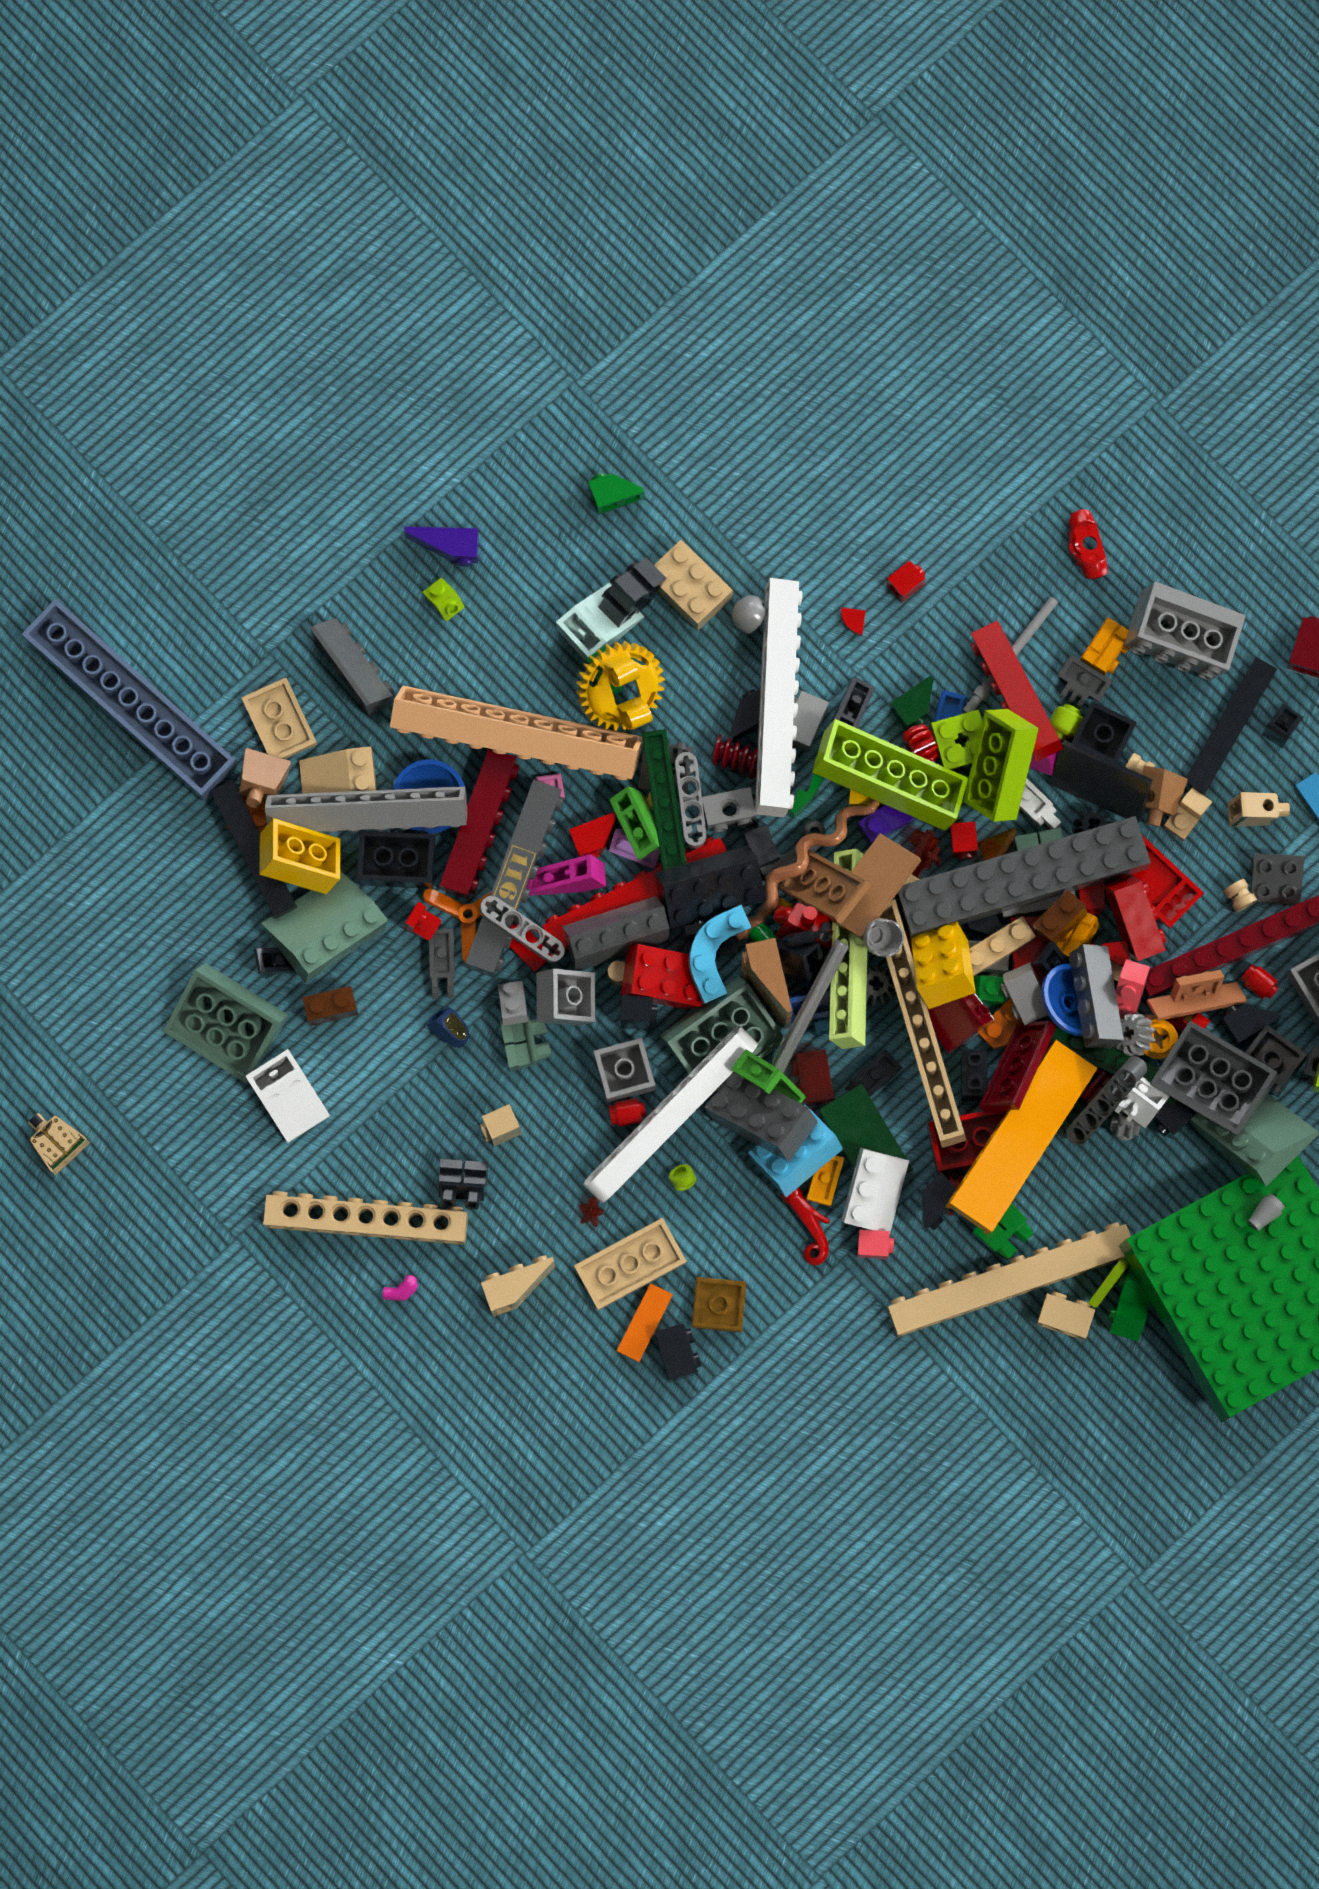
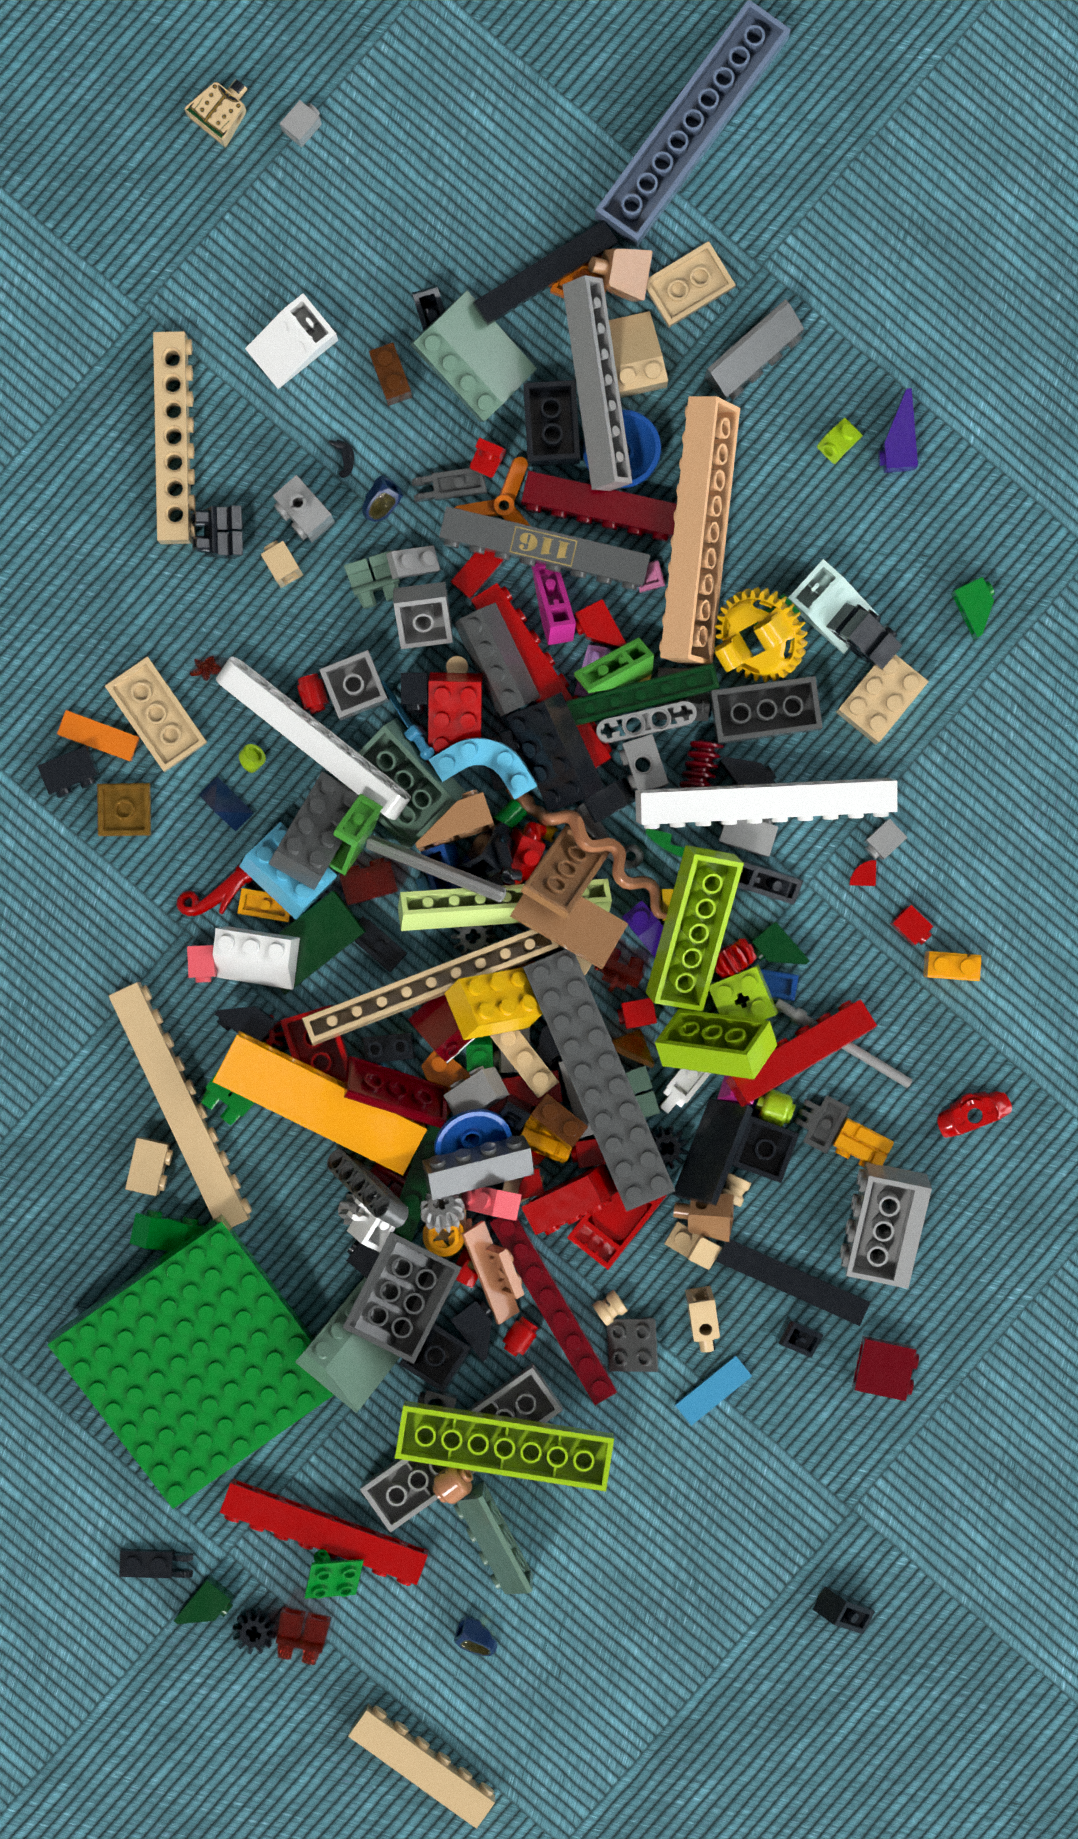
camera: 85 degrees right, 10 degrees up
(78, 1065) = (301, 123): none -> light grey brick
(225, 1022) = (363, 268): sand green slope -> none
(299, 856) = (540, 320): yellow brick -> none
(402, 1056) = (347, 454): none -> black piece
(403, 1291) = (105, 486): dark pink arm -> none
(451, 1099) = (301, 506): none -> light grey brick
(511, 1289) = (109, 588): tan slope -> none
(524, 925) = (484, 558): light grey beam -> none
(677, 1017) = (414, 733): none -> dark azure sword
(691, 691) = (766, 710): none -> dark grey brick
(723, 1207) = (226, 804): none -> dark blue slope
(748, 613) = (857, 762): light grey hair -> none
(823, 597) = (884, 840): none -> light grey brick
(883, 937) = (512, 937): light grey hair -> none
(948, 548) = (952, 966): none -> light orange brick
(1108, 1283) = (185, 1207): lime tile -> none
(1266, 1211) = (267, 1364): light grey cone -> none

